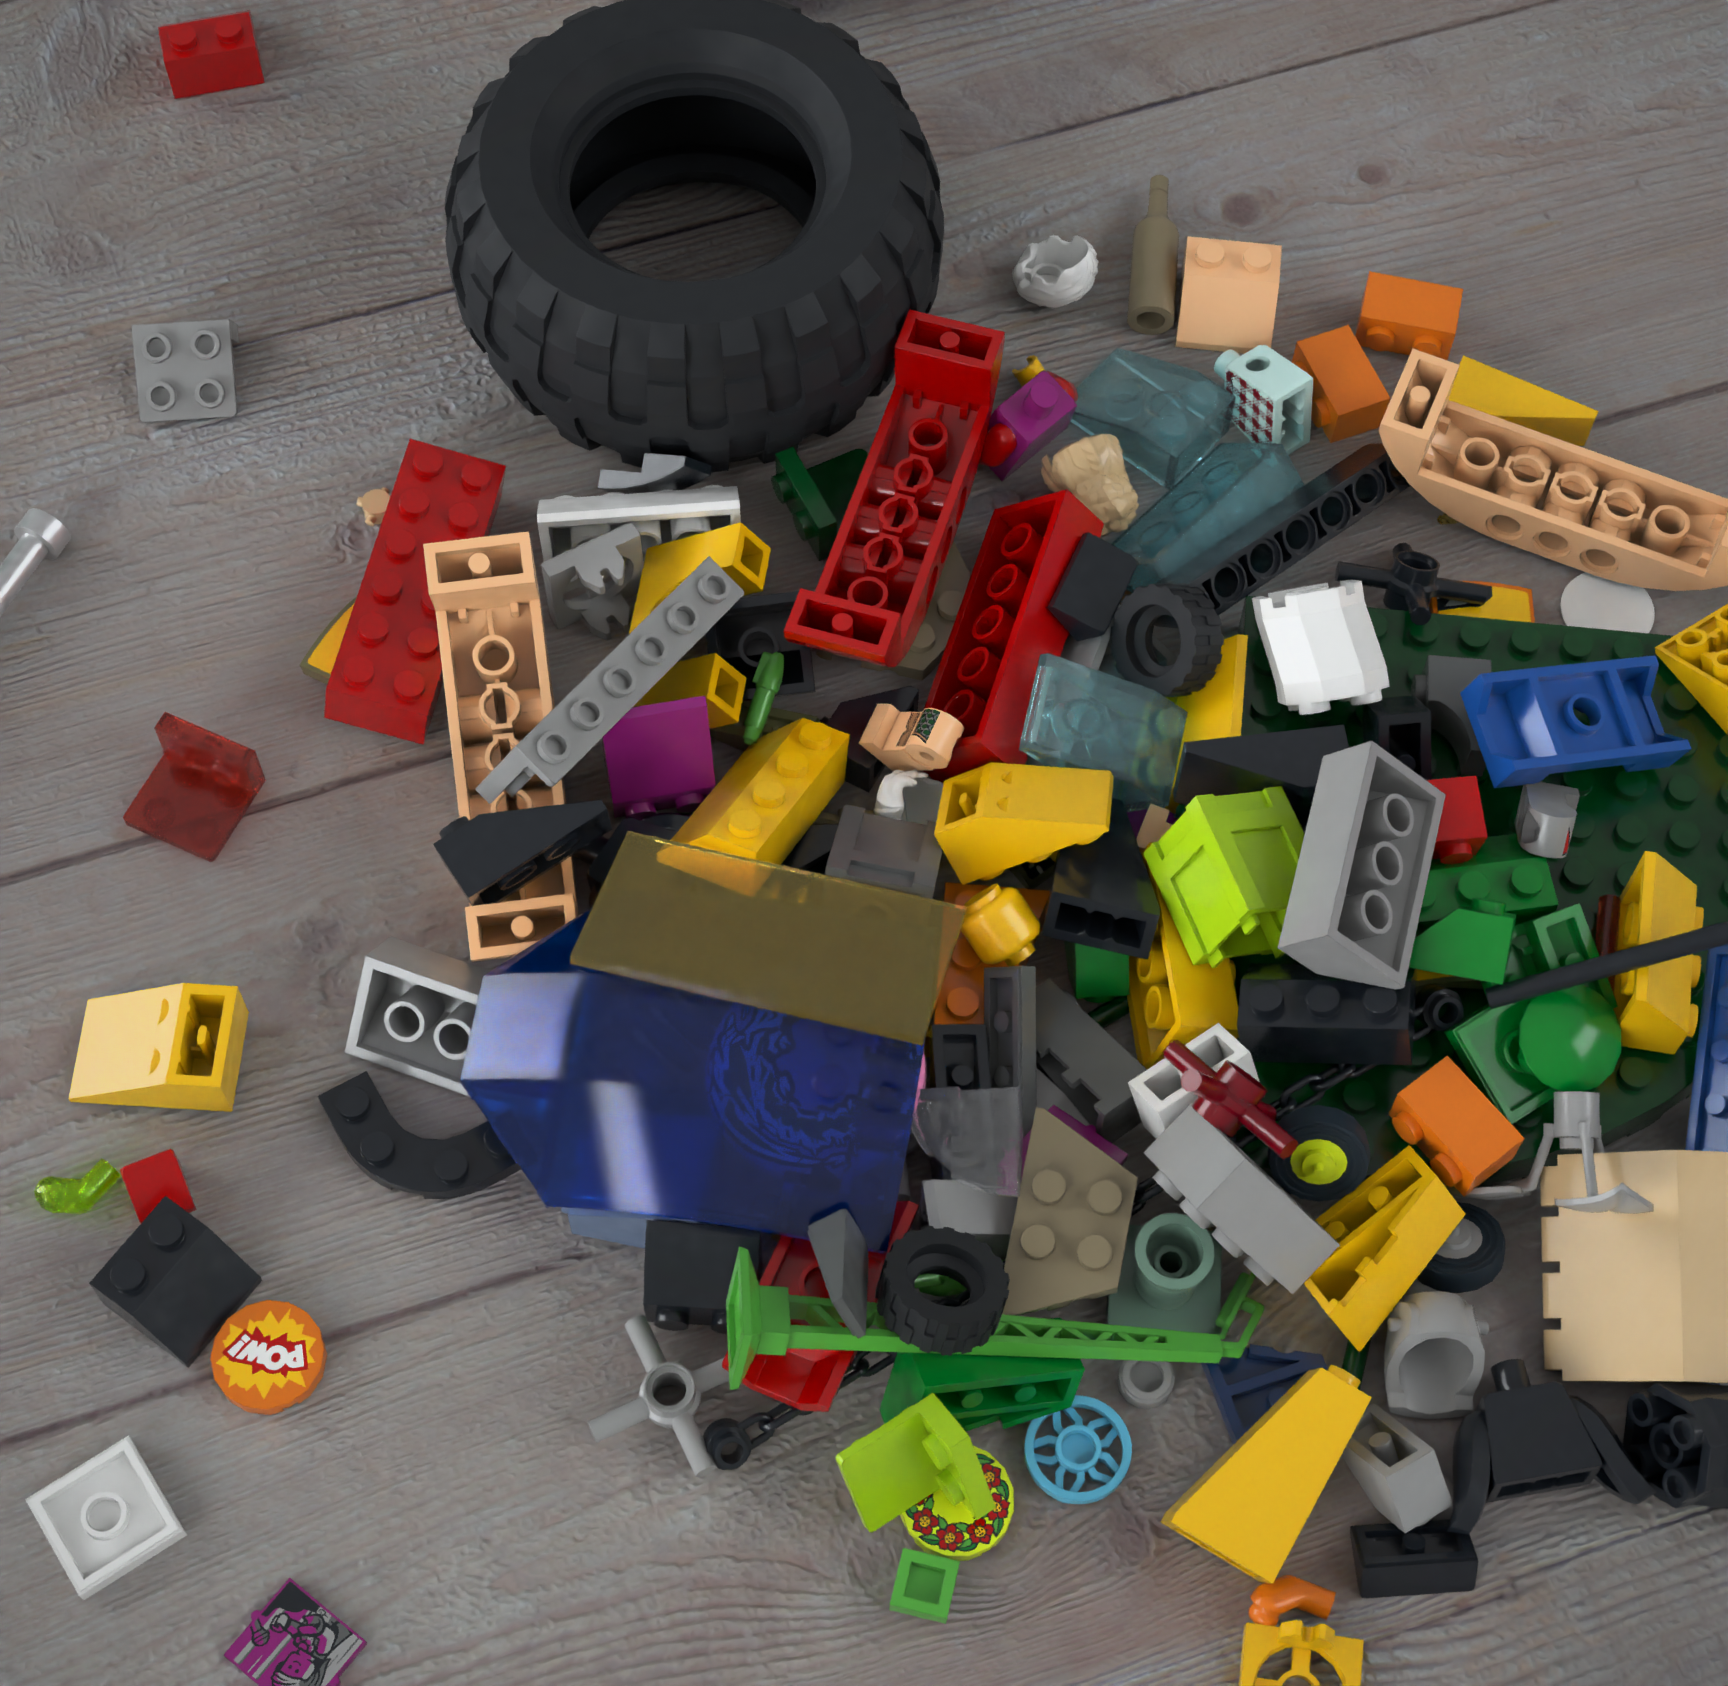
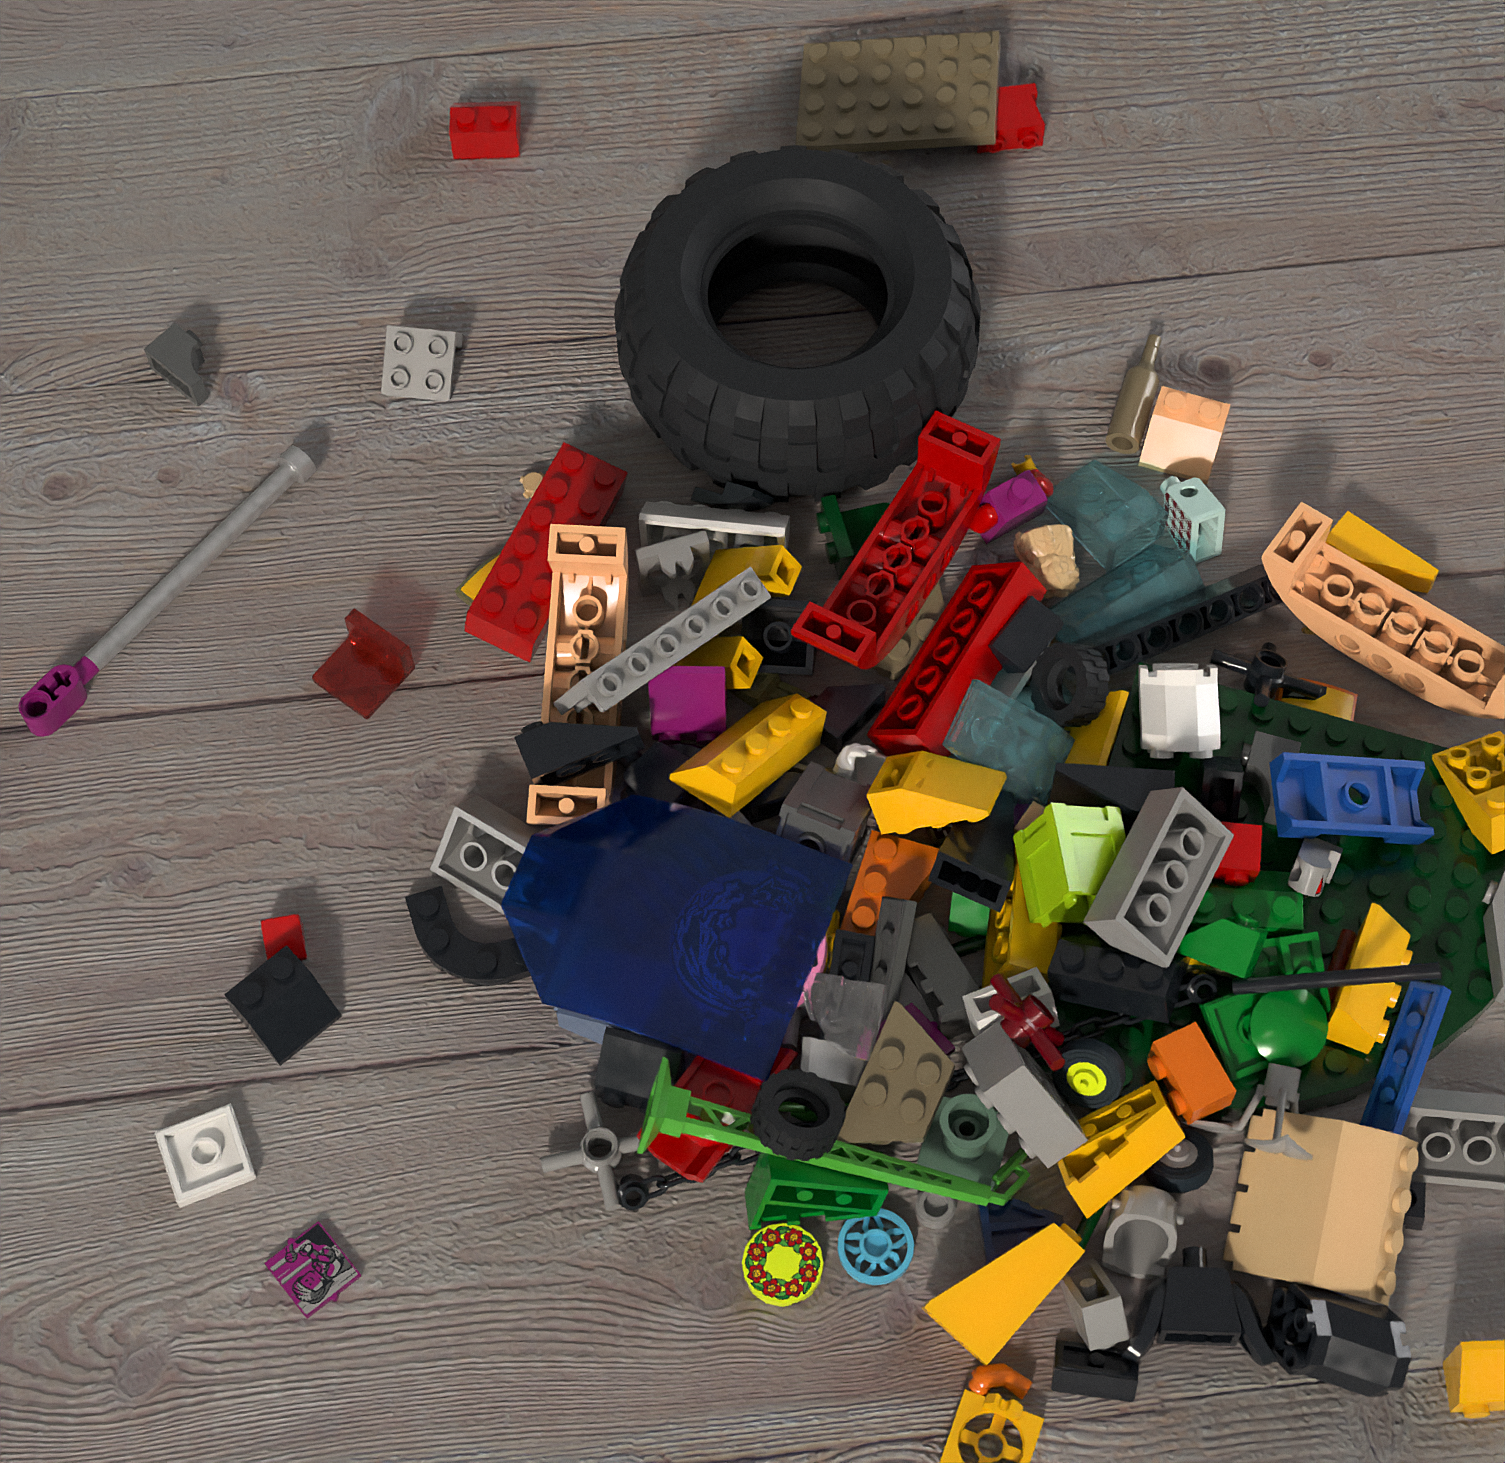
camera: 15 degrees right, 0 degrees up
(76, 1194) = (227, 932): clear neon green arm -> none
(162, 1048) = (306, 843): yellow slope -> none
(268, 1357) = (335, 1069): tile -> none
(767, 684) = (778, 662): bright green piece -> none
(771, 937) = (732, 846): clear yellow piece -> none
(844, 1266) = (732, 1085): dark grey slope -> none
(910, 1461) = (752, 1229): lime bracket -> none
(911, 738) = (869, 722): light nougat leg -> none
(924, 1585) = (746, 1316): bright green plate -> none
(1000, 925) = (900, 868): yellow head -> none
(1056, 271) = (1060, 395): white hair -> none
(1345, 385) = (1249, 514): orange brick -> none
(1408, 315) = (1316, 473): orange brick -> none
(1607, 605) = (1413, 717): white sticker -> none

